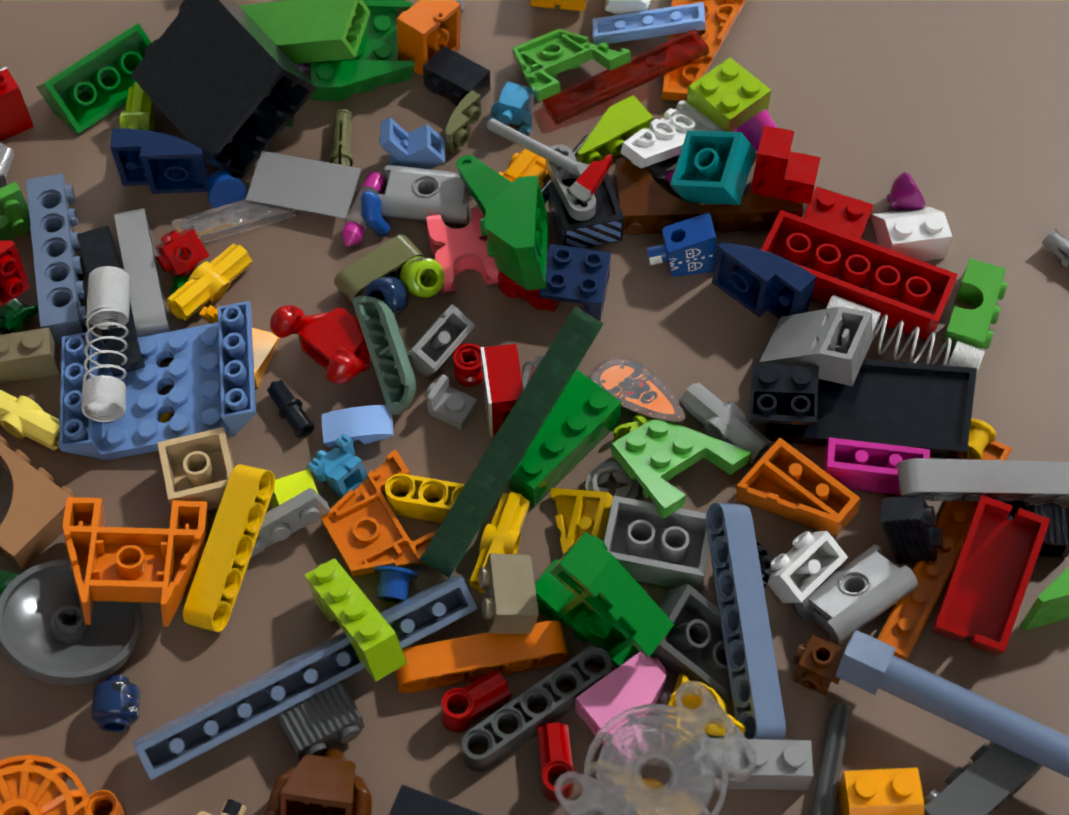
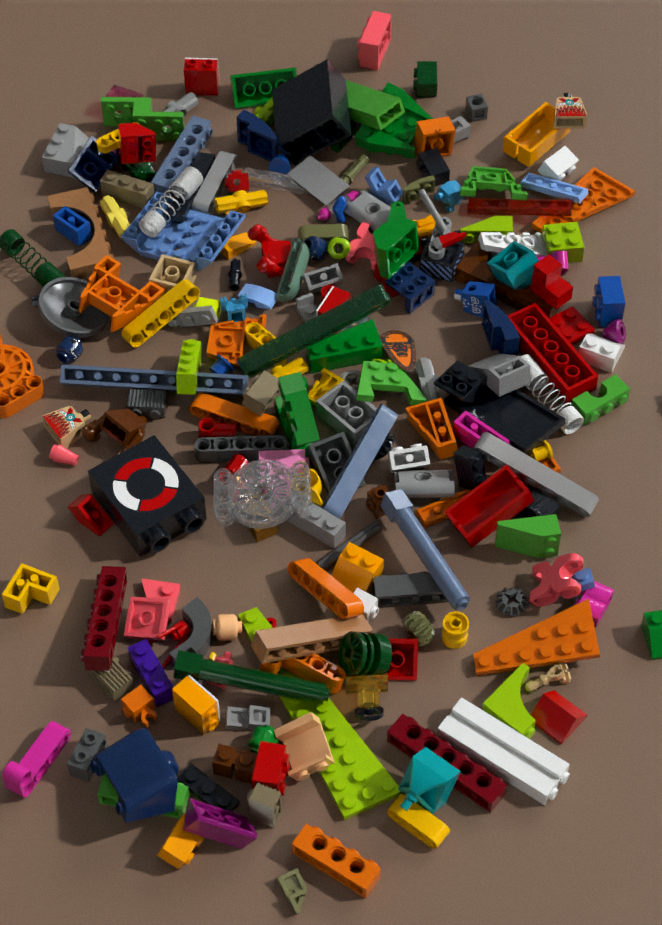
camera: 35 degrees right, 5 degrees down
(869, 152) = (608, 300): none -> blue brick

